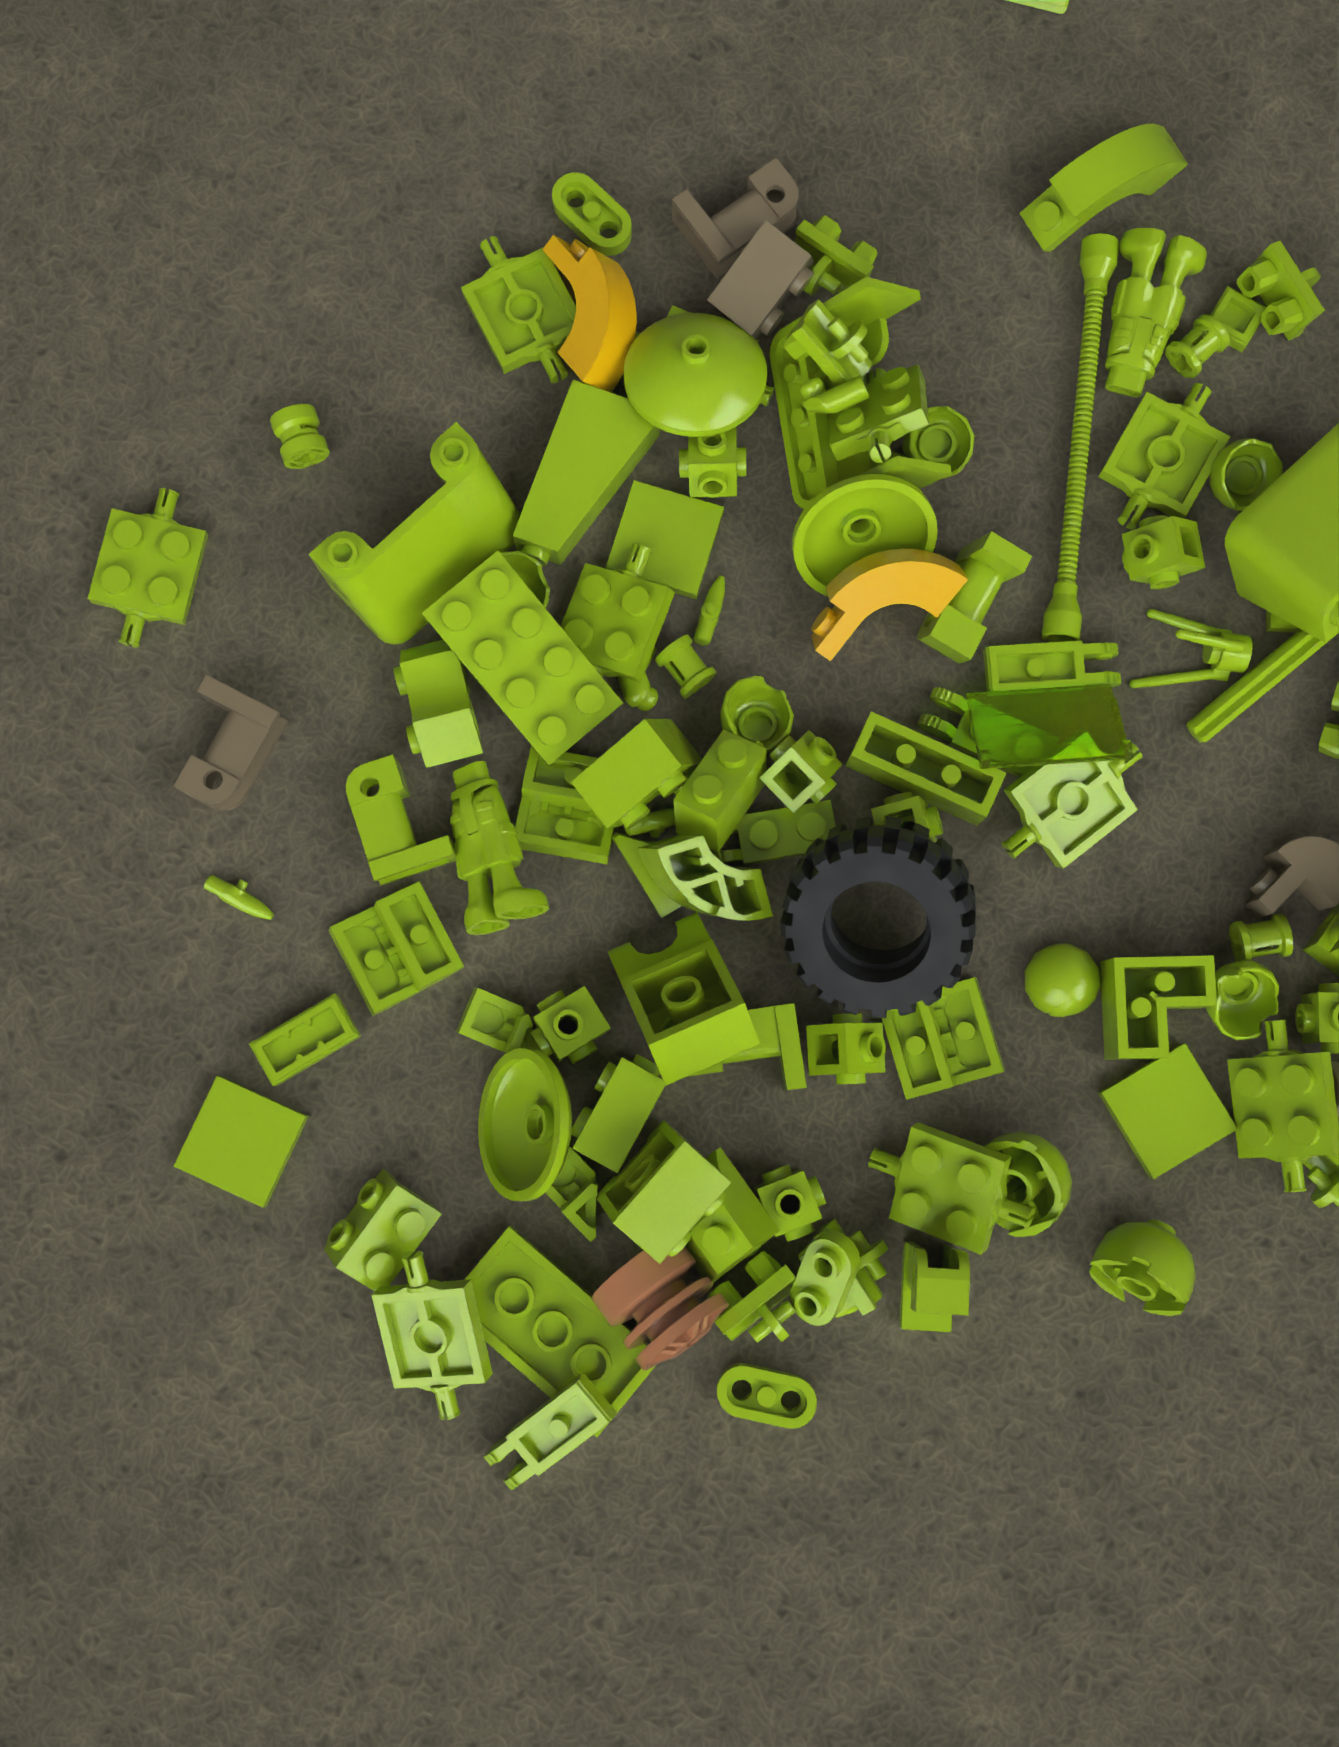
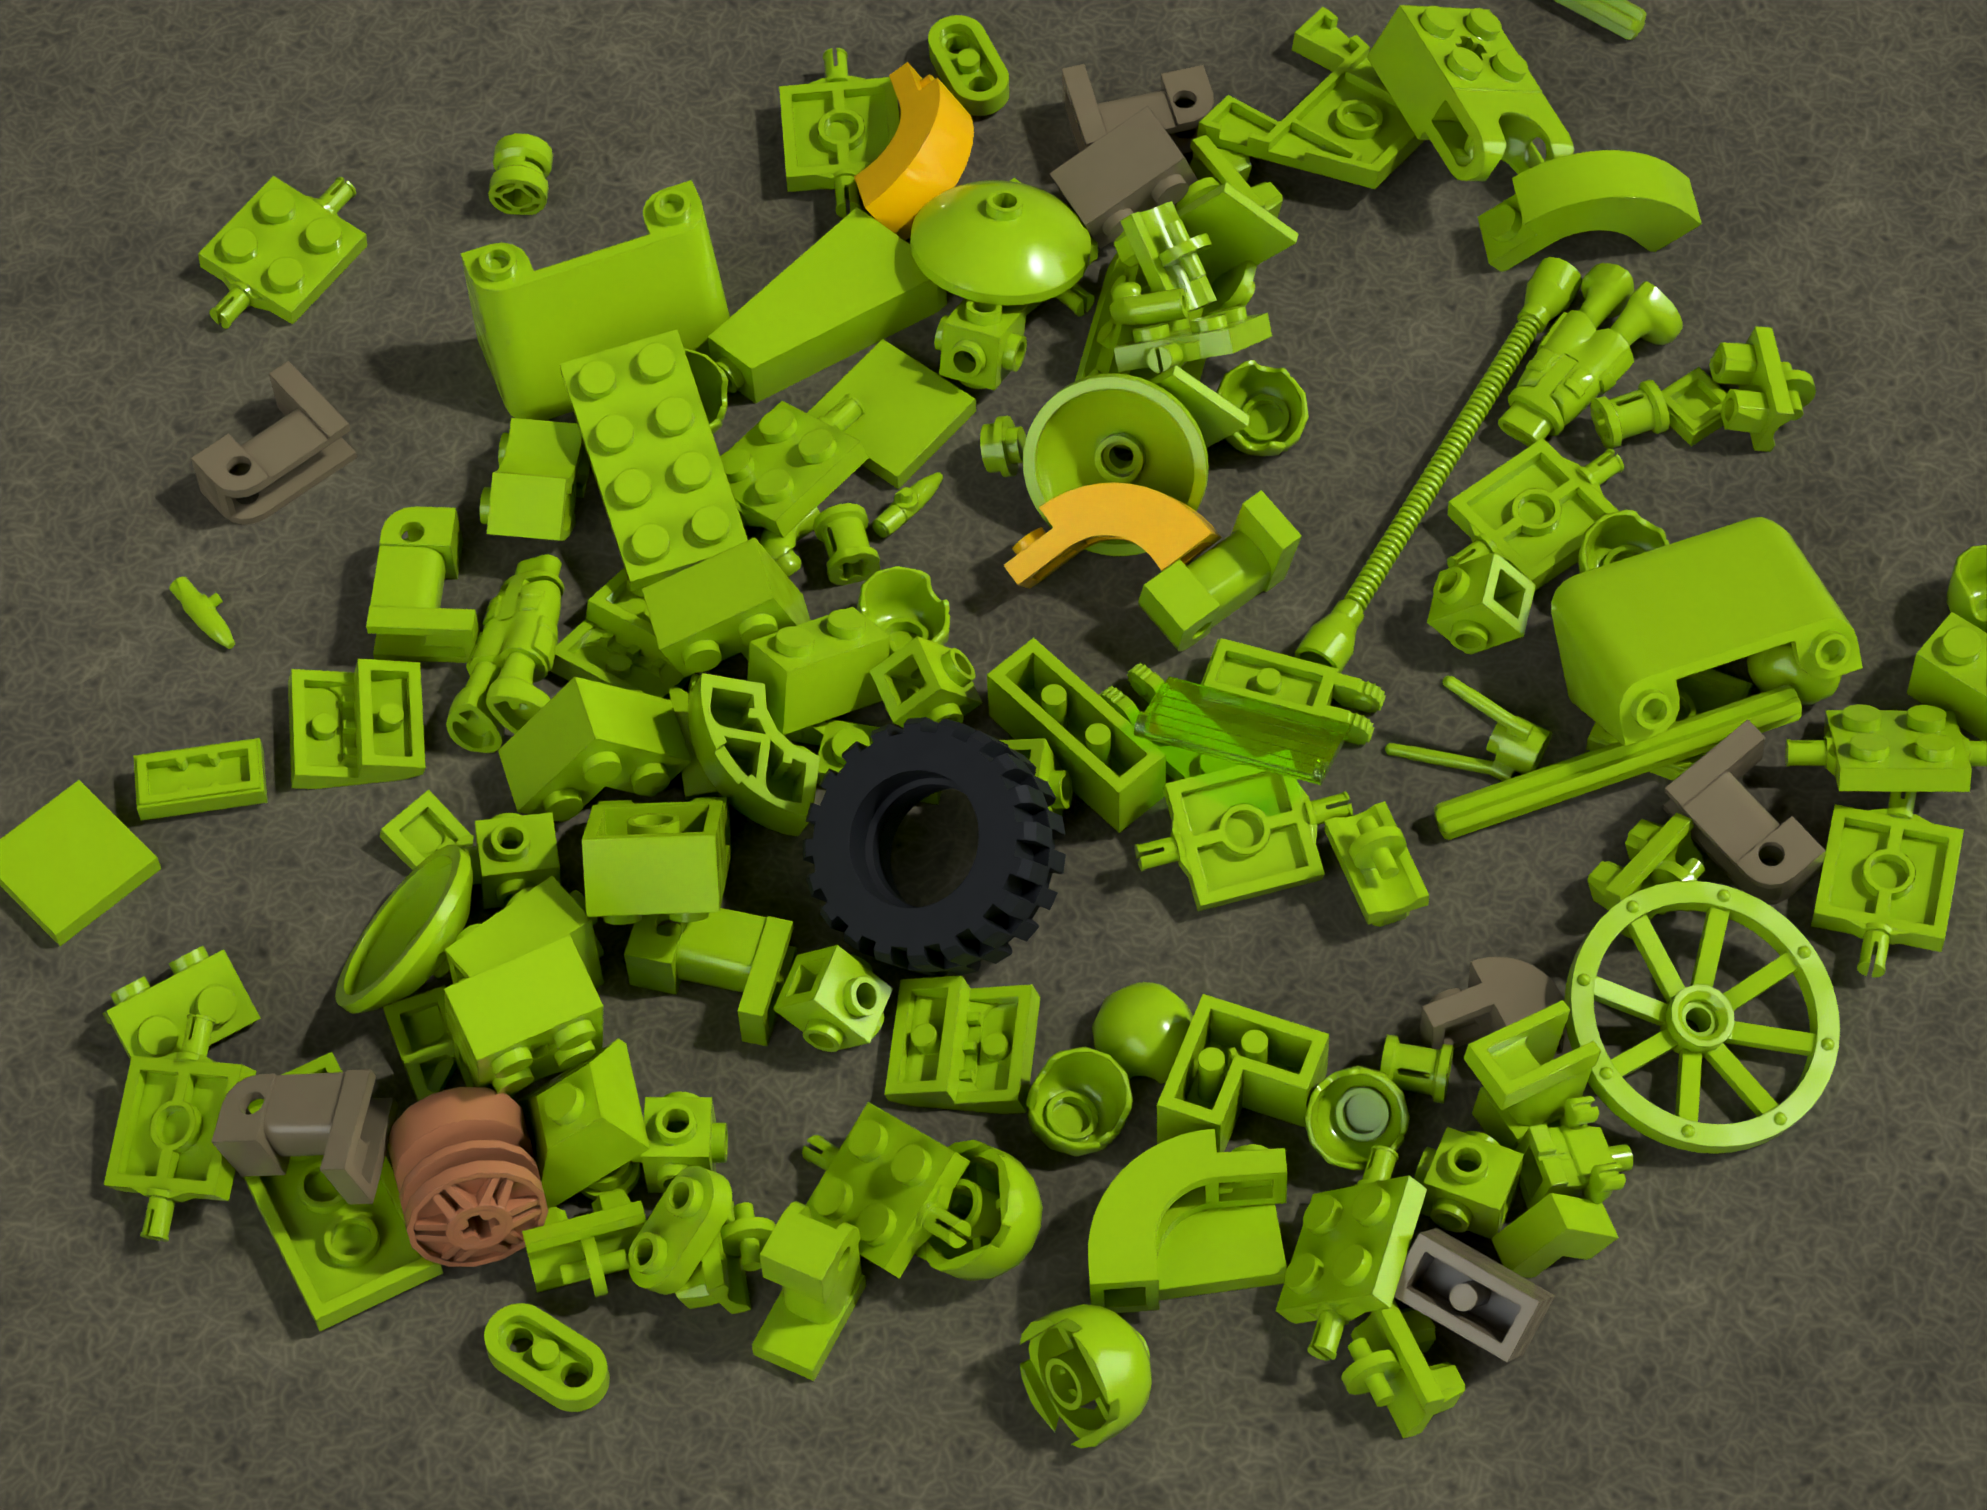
camera: 25 degrees right, 25 degrees down
(553, 1430) = (263, 1283): lime hinge -> none
(557, 1301) = (307, 1118): none -> dark tan piece
(587, 918) = (590, 741): none -> lime brick
(763, 541) = (1002, 446): none -> lime plate
(901, 163) = (1339, 130): none -> lime wing
(985, 114) = (1466, 90): none -> lime brick
(1048, 1060) = (1079, 1101): none -> lime hair
(1132, 1130) = (1159, 1193): none -> lime arch
(1174, 790) = (1377, 865): none -> lime hips

